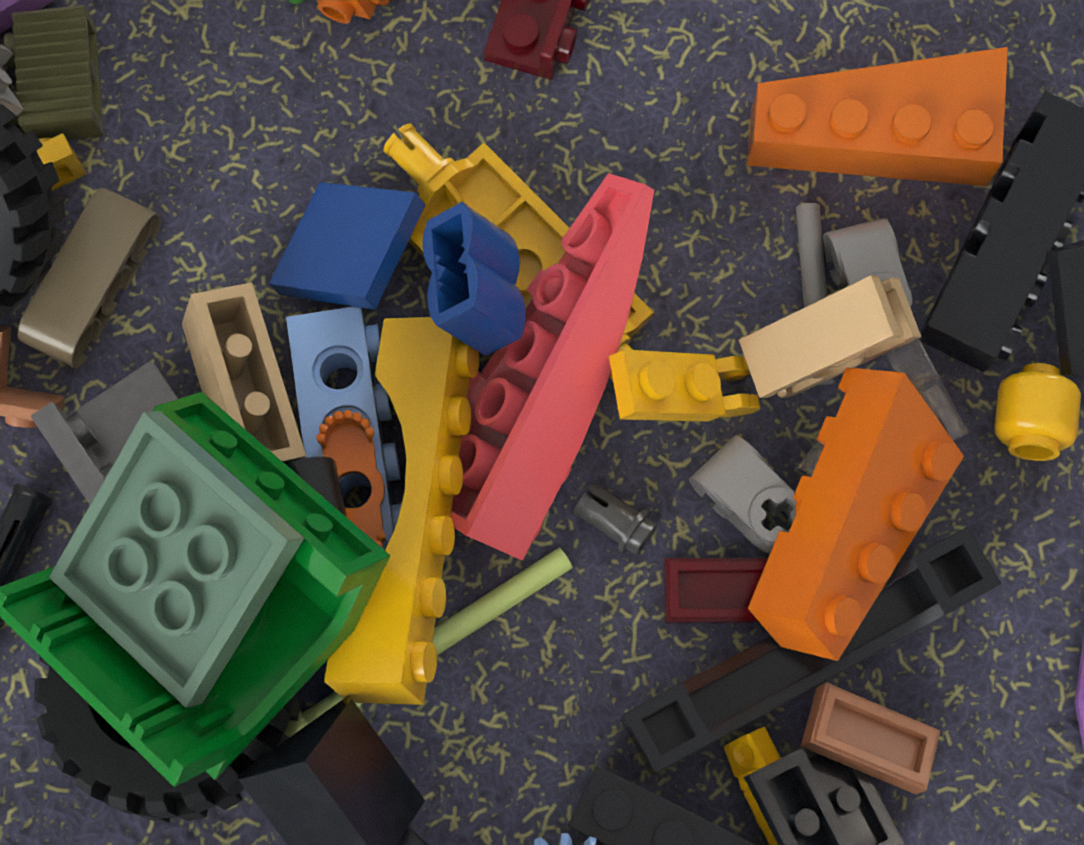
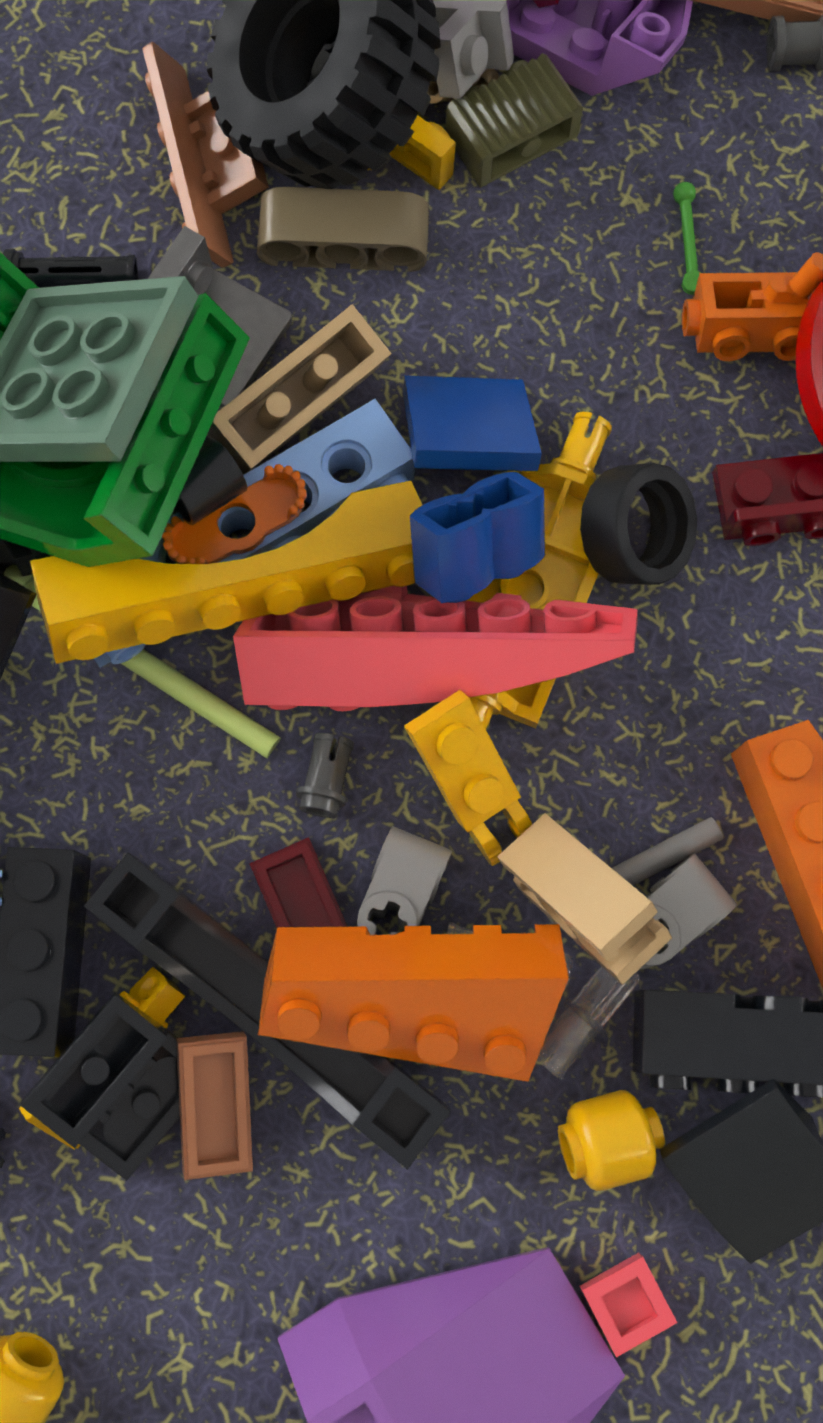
camera: 65 degrees right, 0 degrees up
(503, 163) = (606, 520): none -> black tyre

